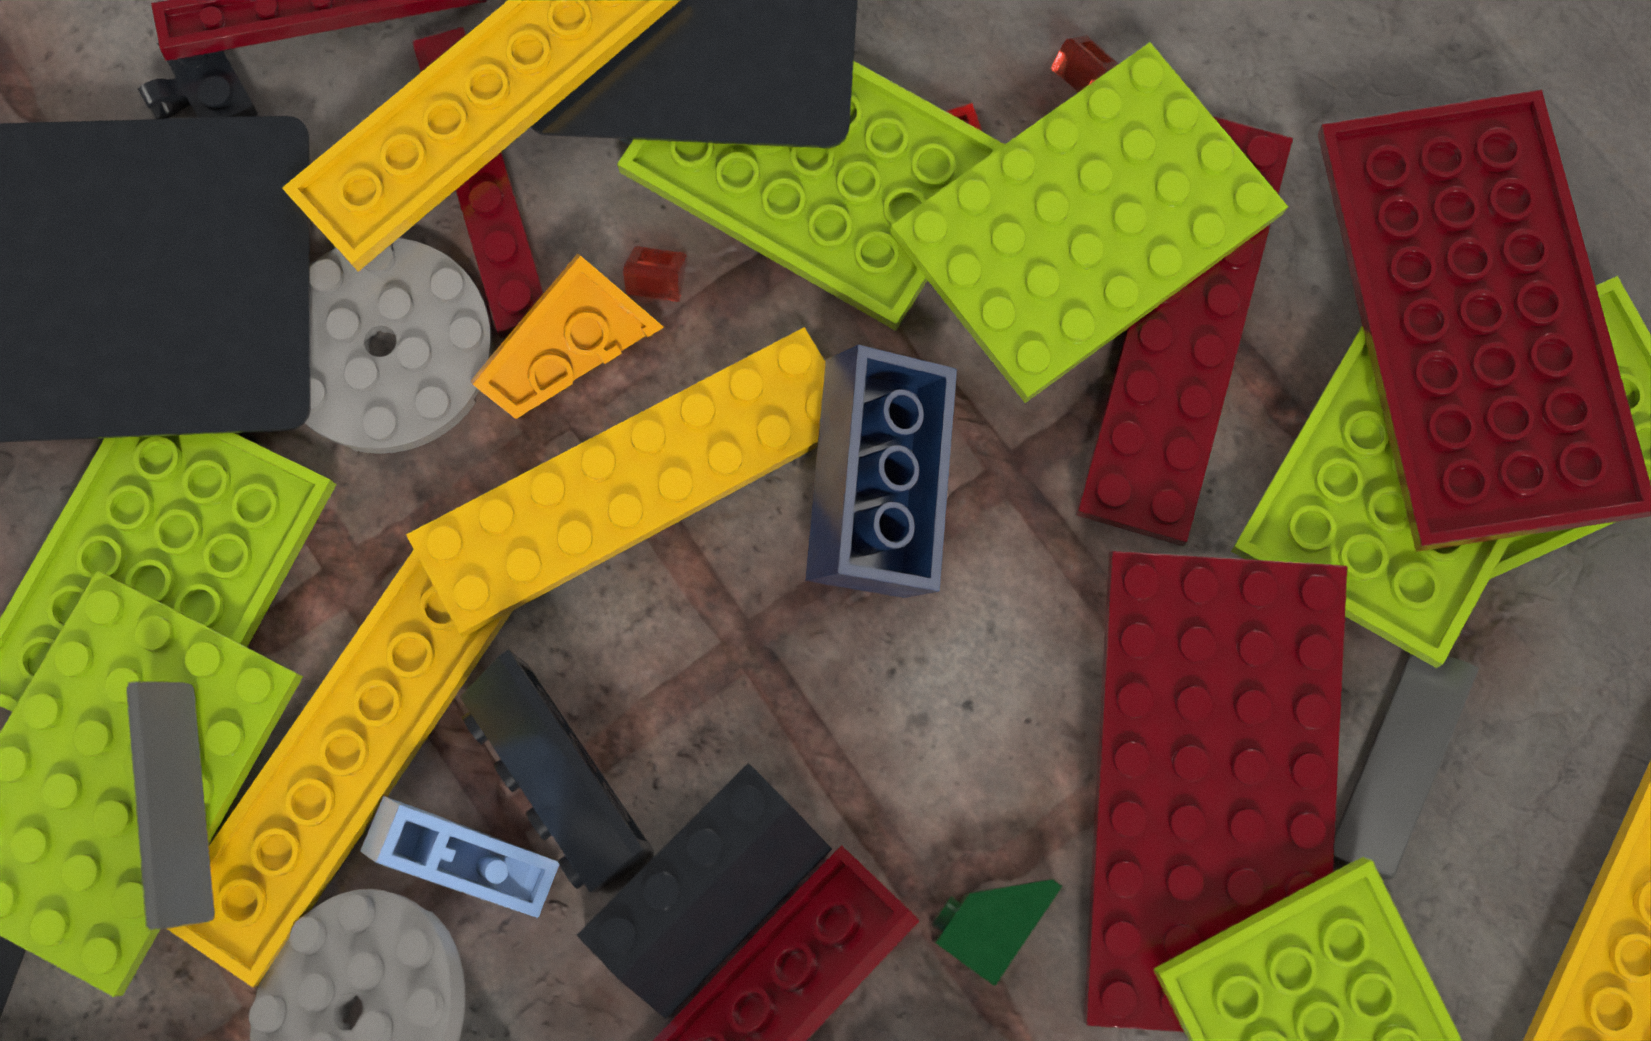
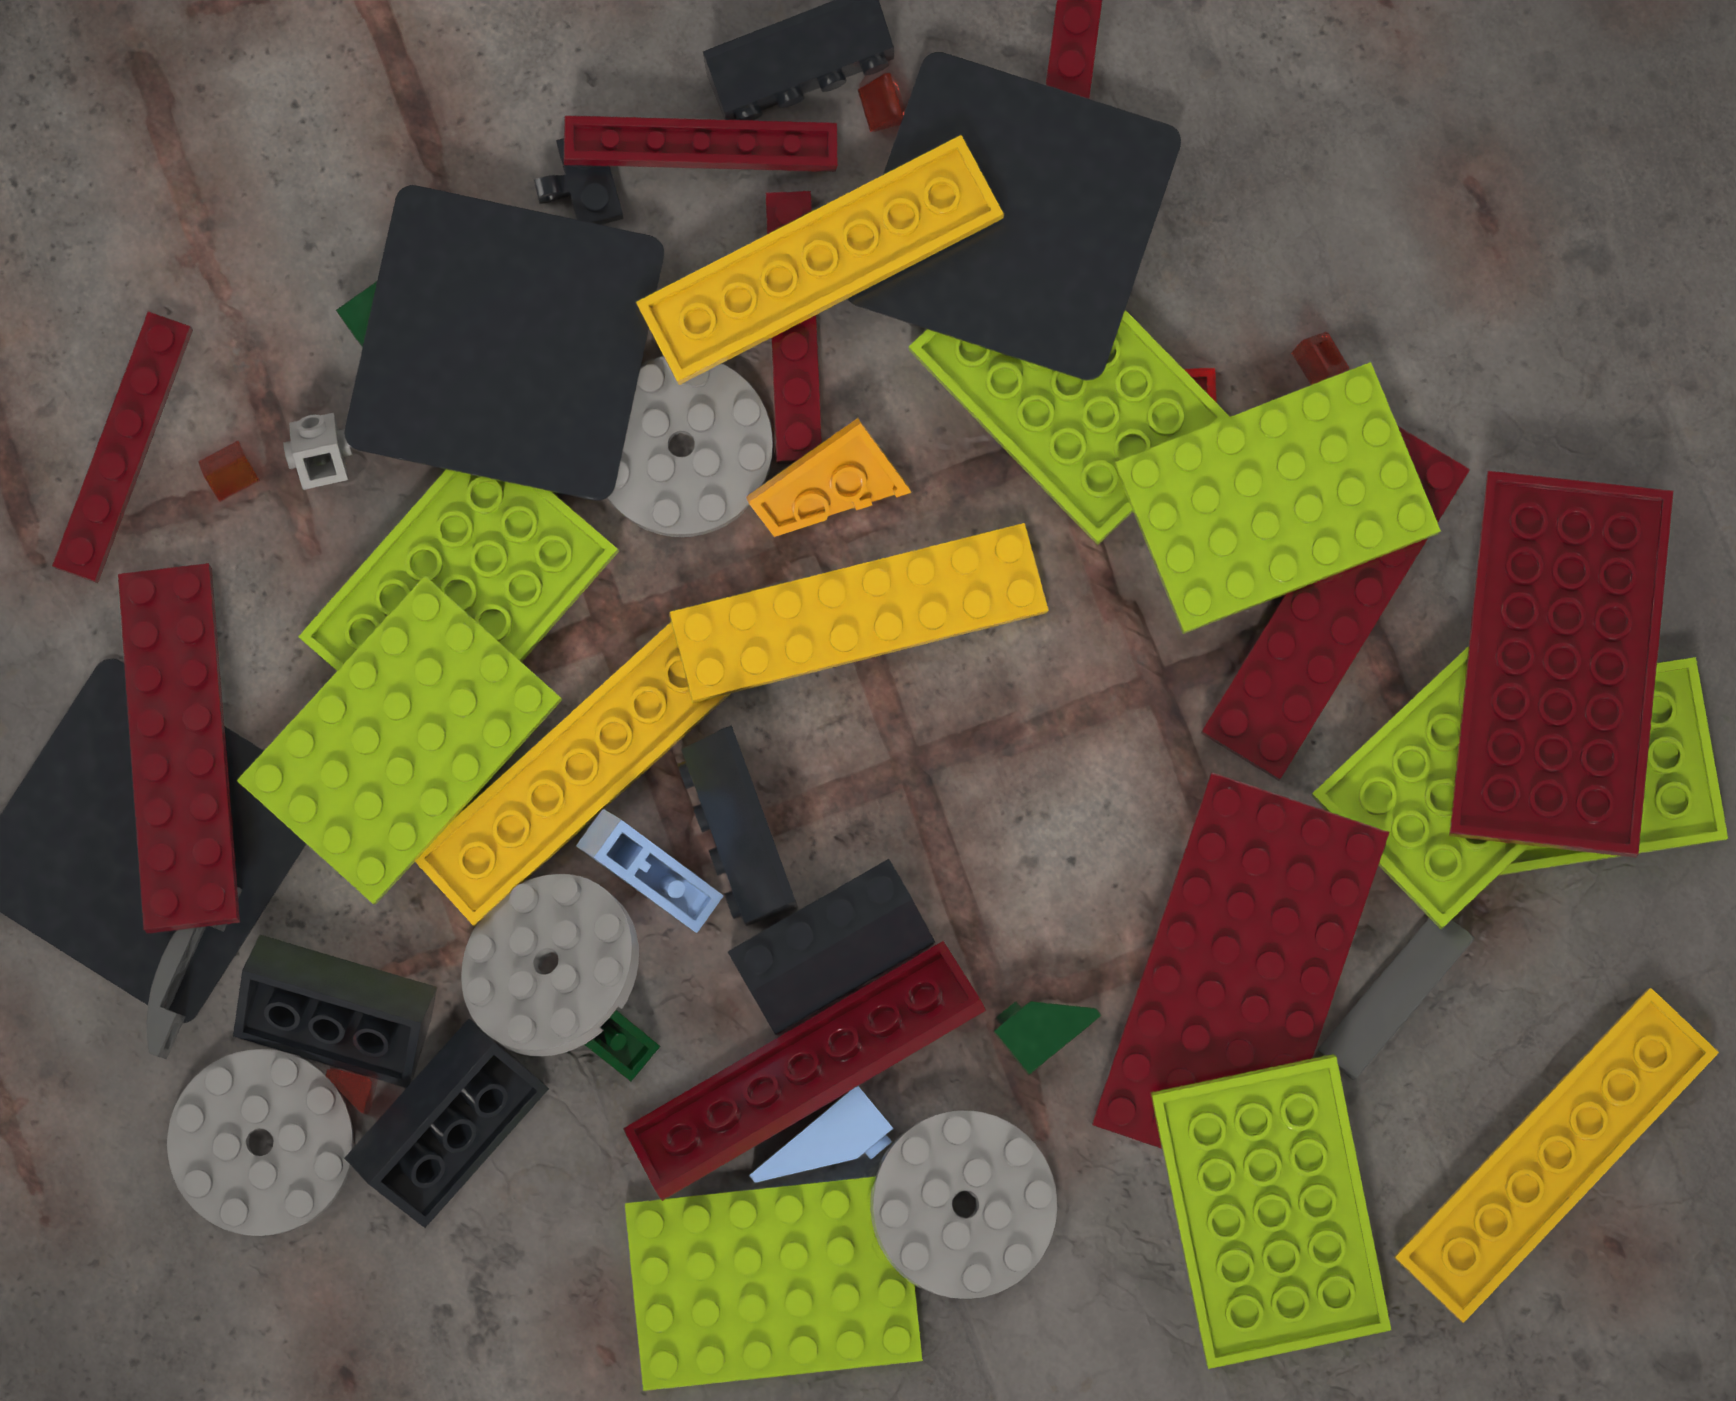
camera: 20 degrees right, 5 degrees up
(170, 804) = (452, 772): dark grey slope -> none
(655, 273) = (916, 443): clear red slope -> none
(881, 473) = (1052, 662): dark blue brick -> none

